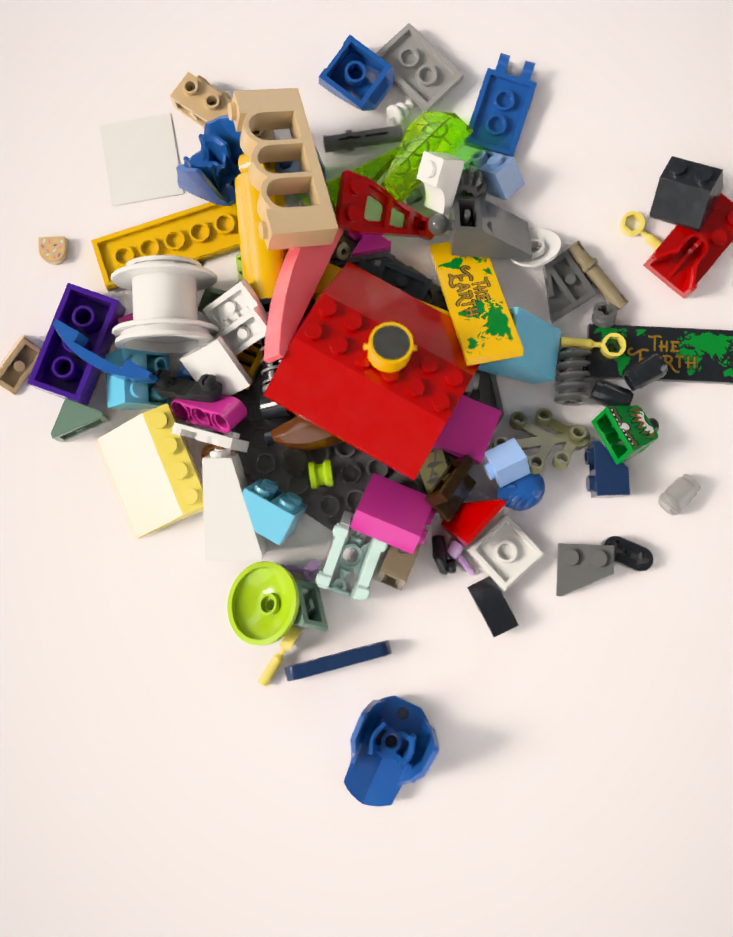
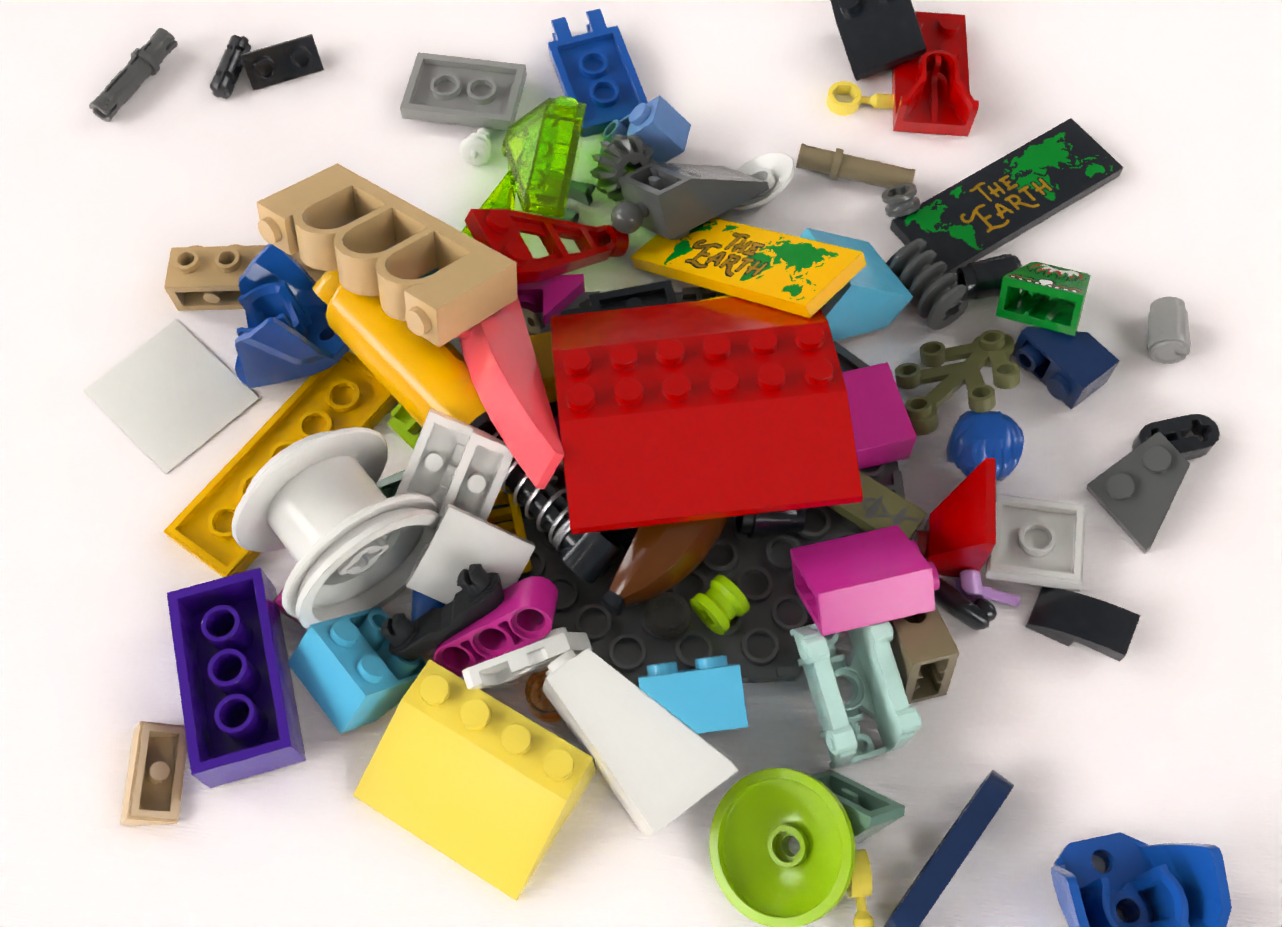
camera: 35 degrees left, 20 degrees down
(53, 249) = (112, 580): tan tile -> none
(76, 419) = (302, 784): sand green slope -> none
(77, 341) = (350, 641): blue slope -> none
(308, 572) = (803, 758): lavender hand -> none
(358, 76) = (397, 133): blue slope -> none
(362, 138) = (464, 189): dark grey pin -> none
(390, 347) = (701, 344): piece -> none
(441, 178) = (592, 162): white arch -> none
(452, 488) = (905, 494): dark brown panel -> none
(506, 463) = (948, 416): light blue brick -> none
(565, 286) = (828, 198): dark grey wing -> none
(589, 344) = (930, 230): light yellow piece -> none
(645, 371) = (1005, 222): black piece -> none

